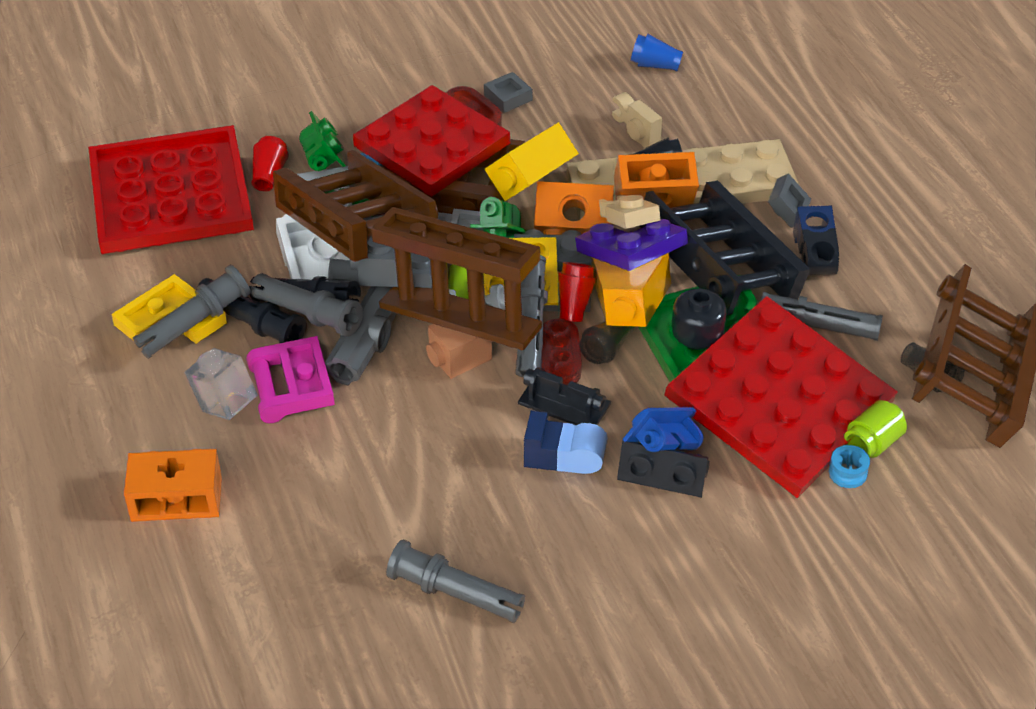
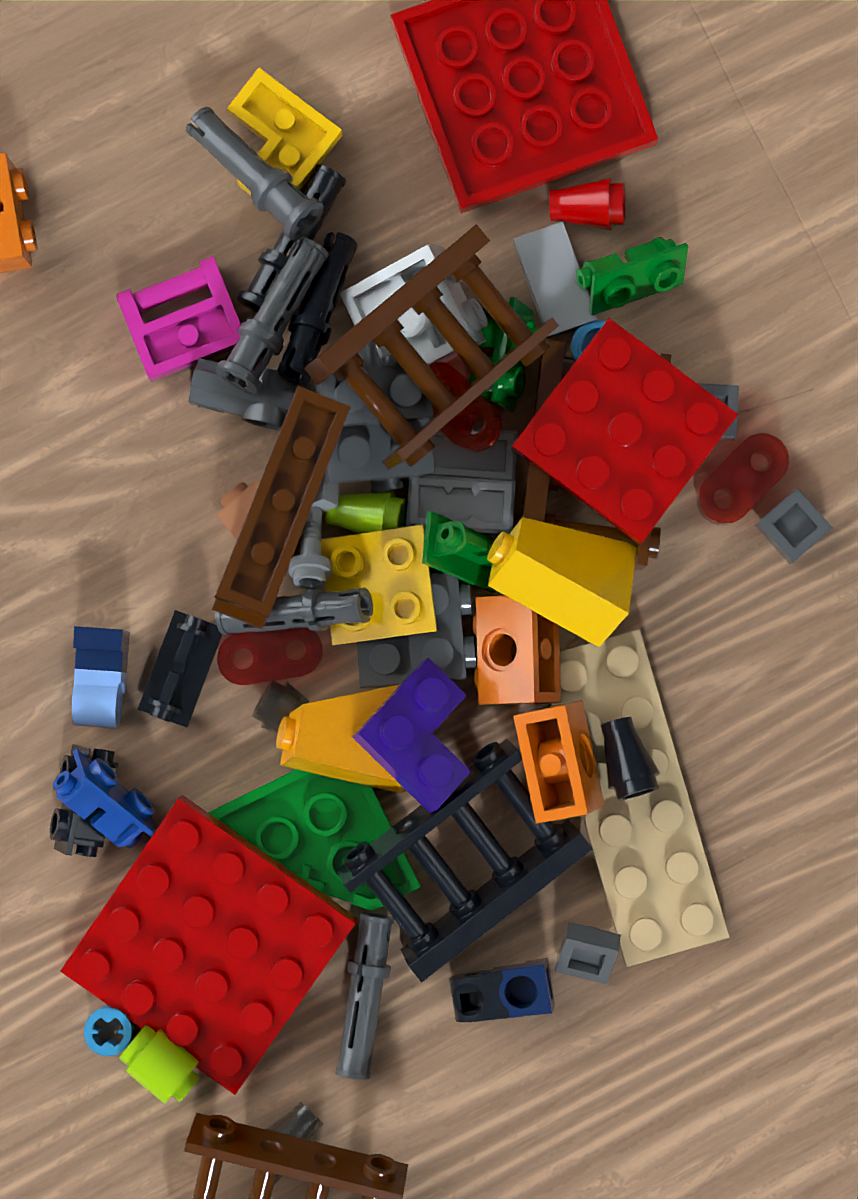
camera: 80 degrees right, 40 degrees up
(221, 383) = (143, 235): clear brick -> none
(575, 288) = (357, 665): red cone -> none
(629, 211) = (462, 728): tan plate -> none
(641, 121) = (733, 730): tan plate -> none
(698, 318) = (302, 817): black head -> none

